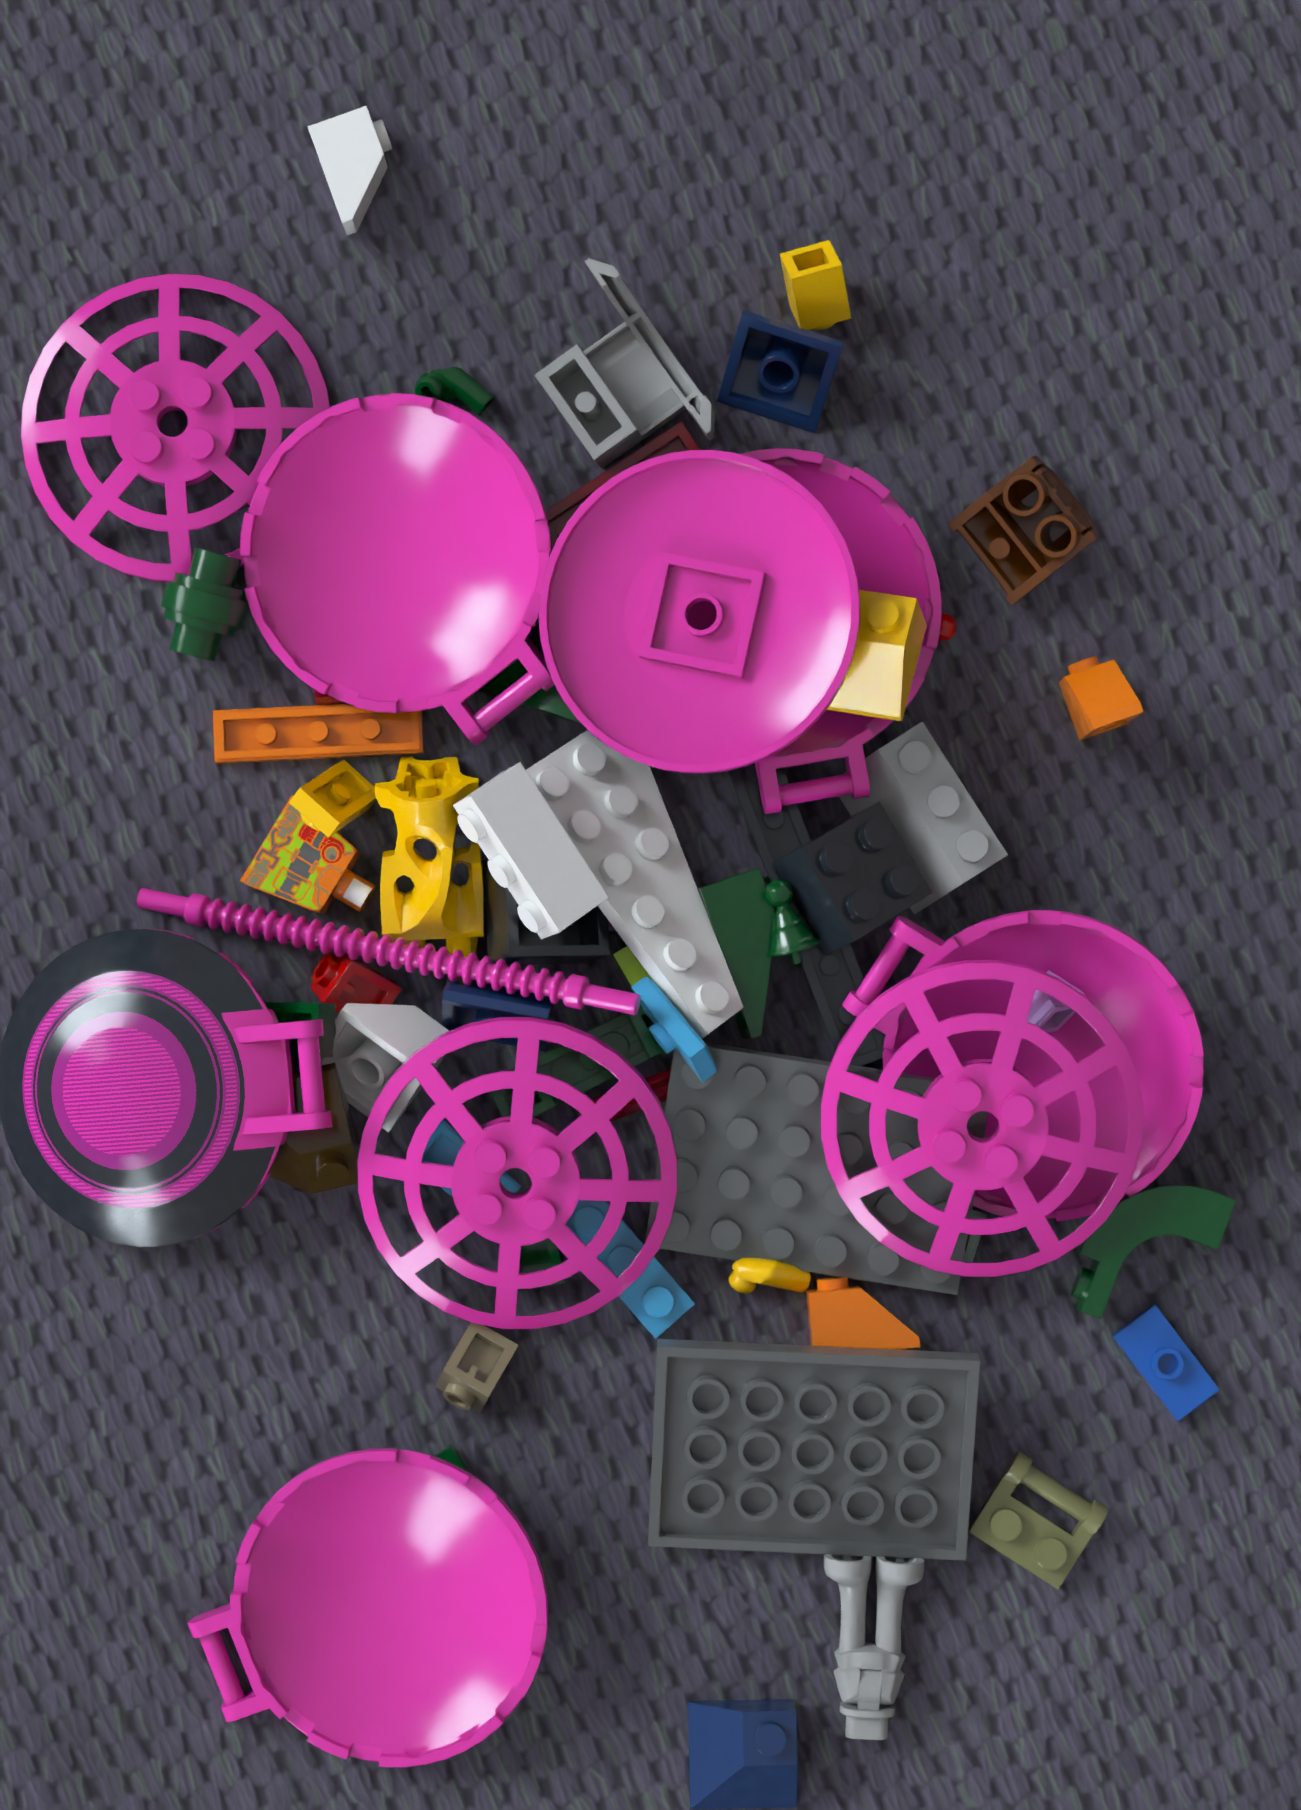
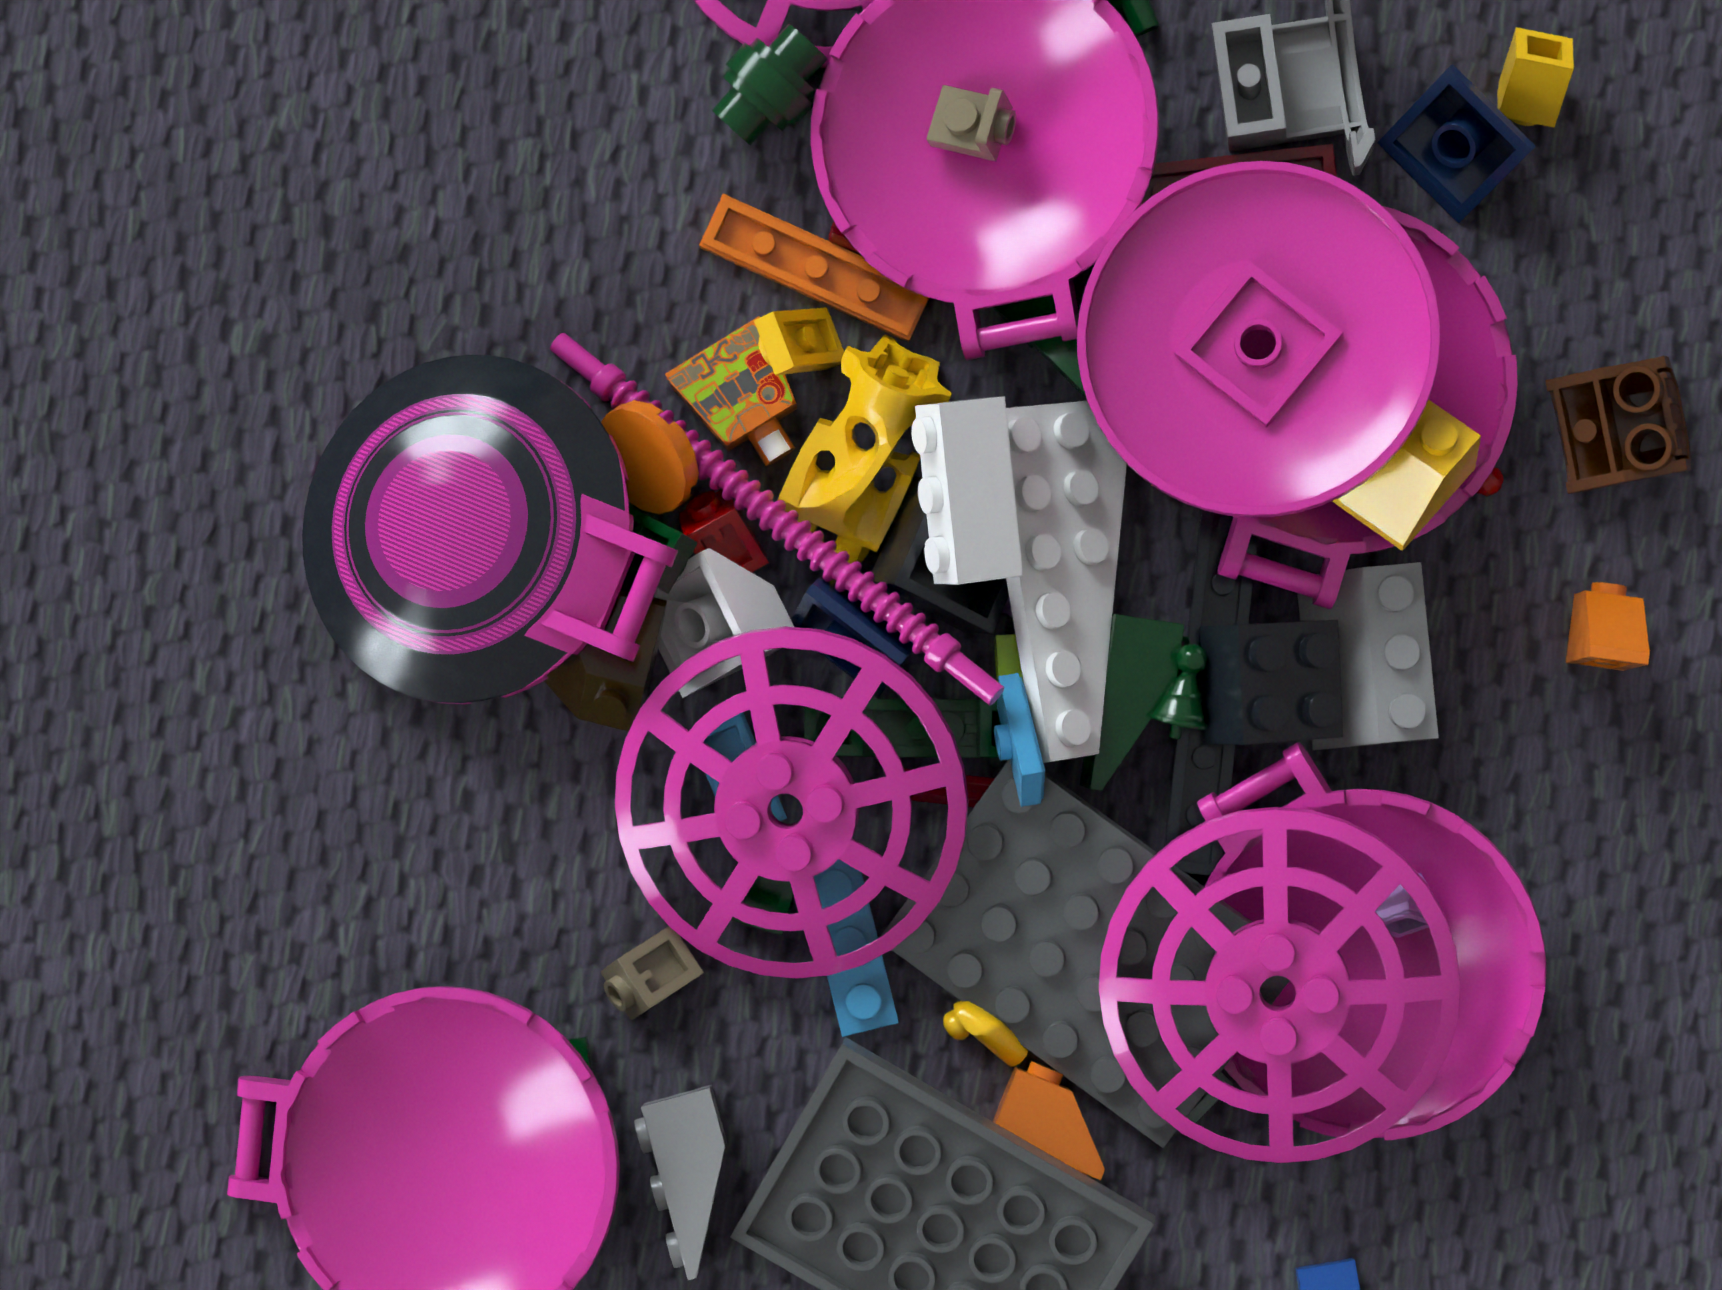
camera: 25 degrees right, 0 degrees up
(265, 951) = (655, 456): none -> orange tile
(383, 552) = (972, 122): none -> dark tan bracket
(581, 1497) = (689, 1155): none -> light grey slope
(1152, 1212) = (1401, 1166): dark green arch -> none

